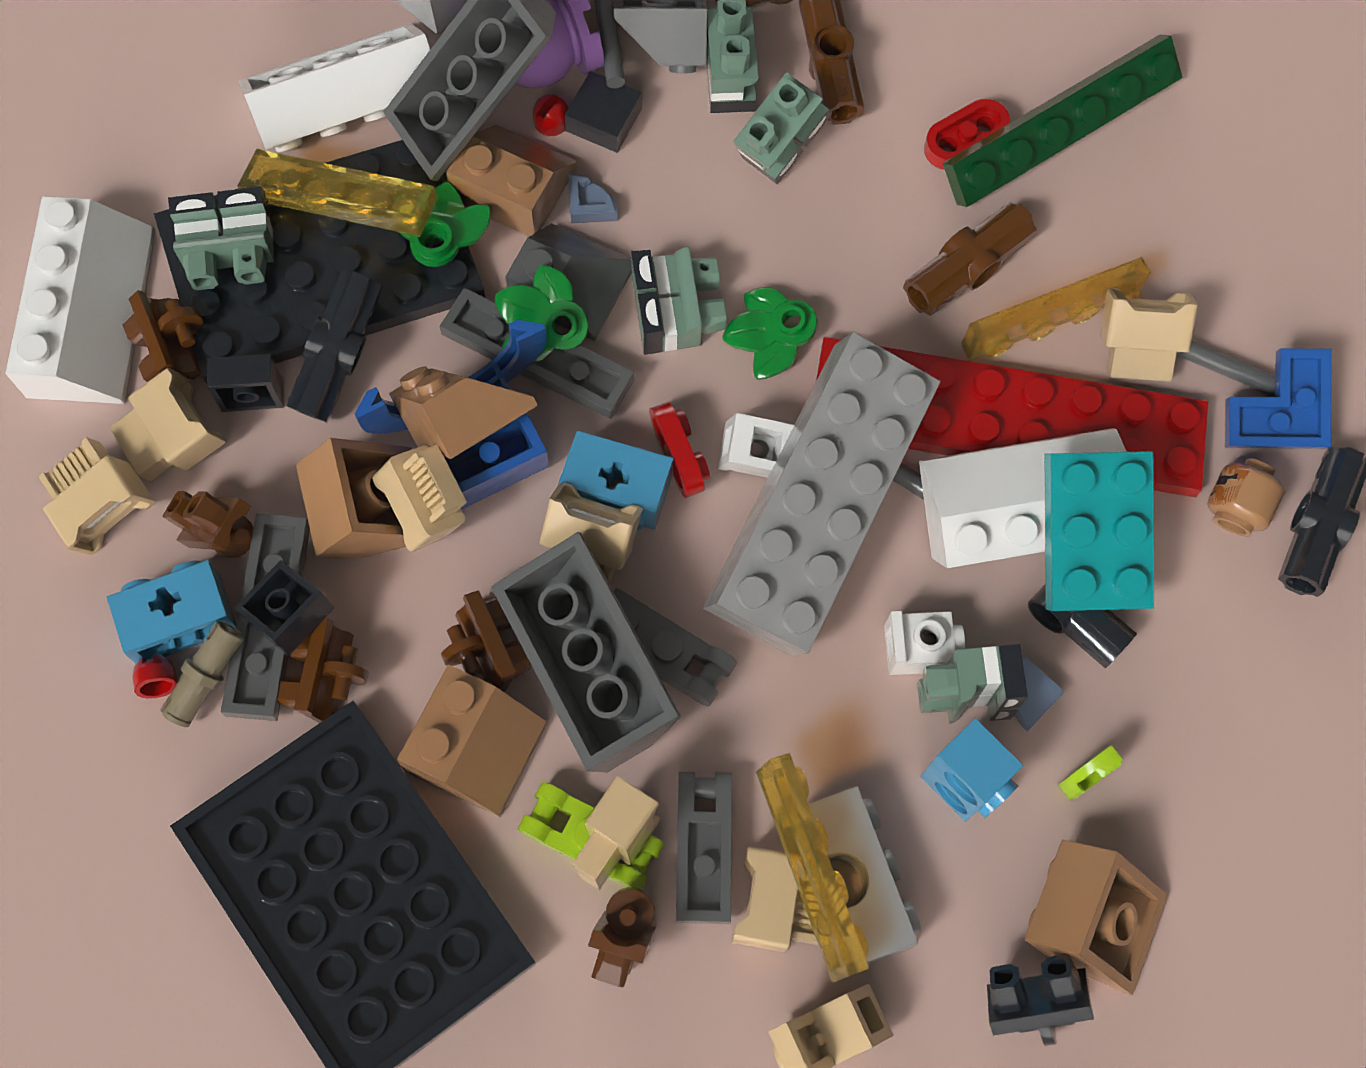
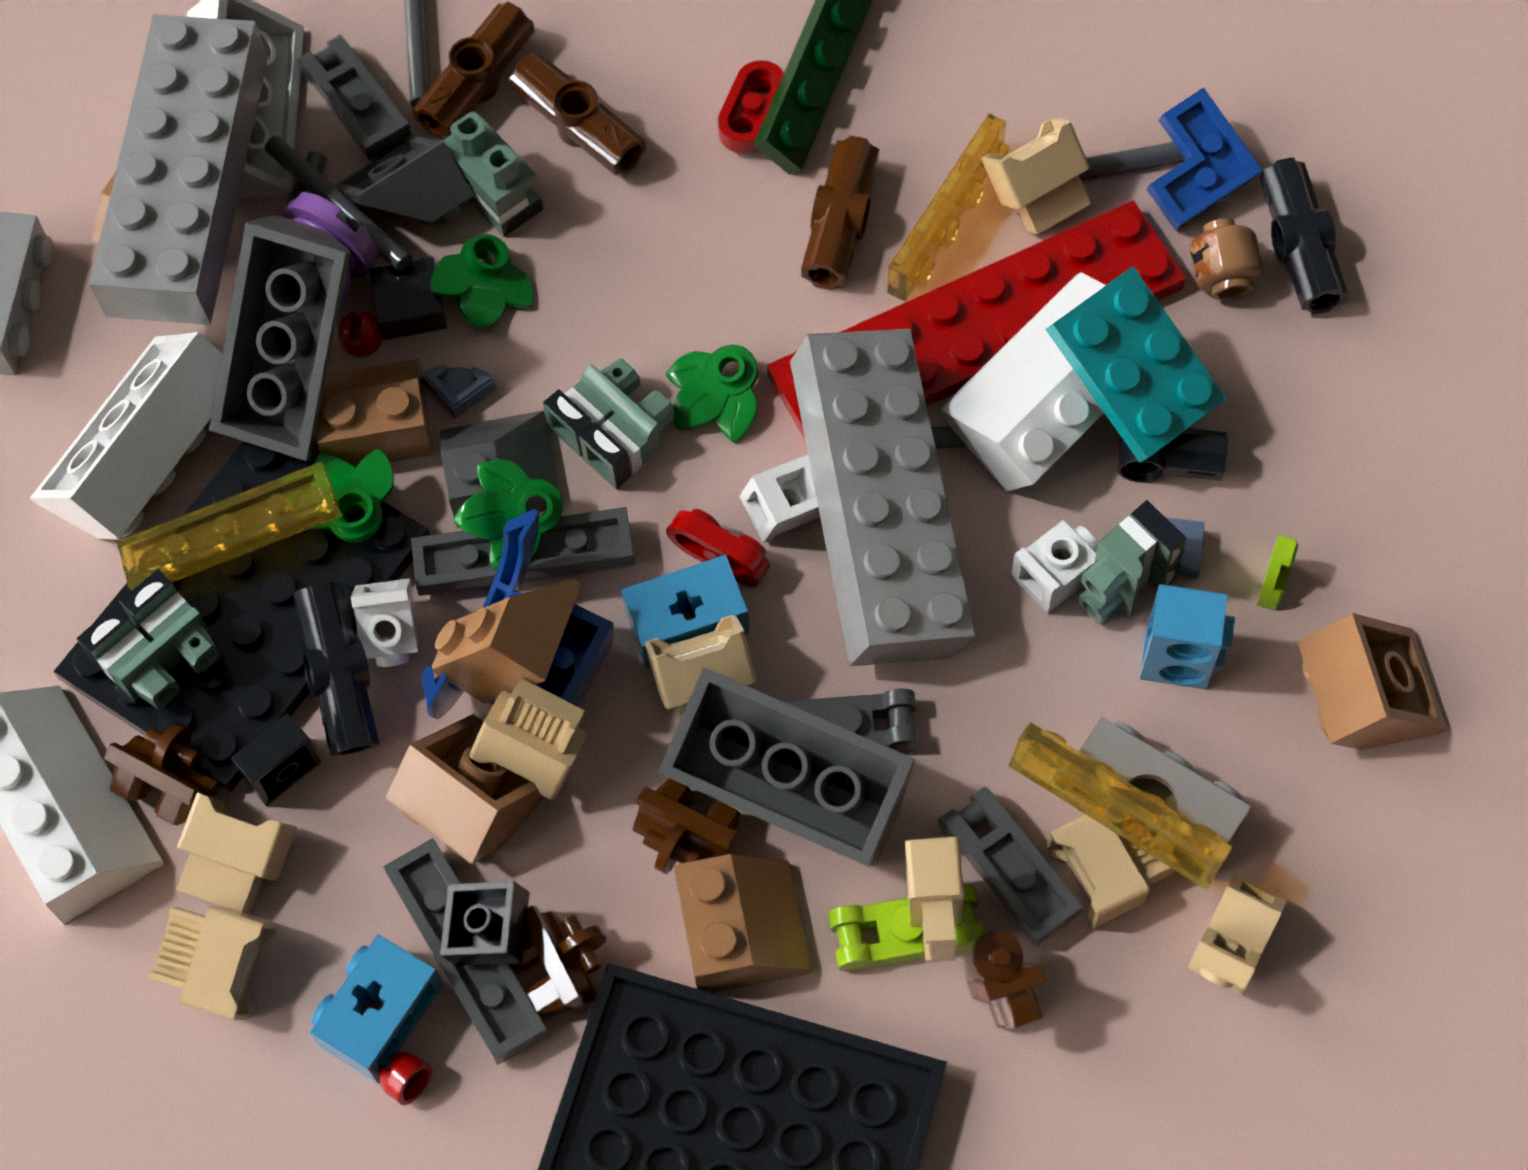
camera: 30 degrees left, 5 degrees down
(202, 674) = (450, 1039): dark tan pin -> none
(211, 522) = (348, 902): reddish brown hips -> none
(411, 331) = (388, 602): none -> white brick
(660, 138) = (480, 286): none -> green plate
(785, 114) = (587, 199): sand green hips -> none
(1040, 1001) = (1381, 783): black hips -> none

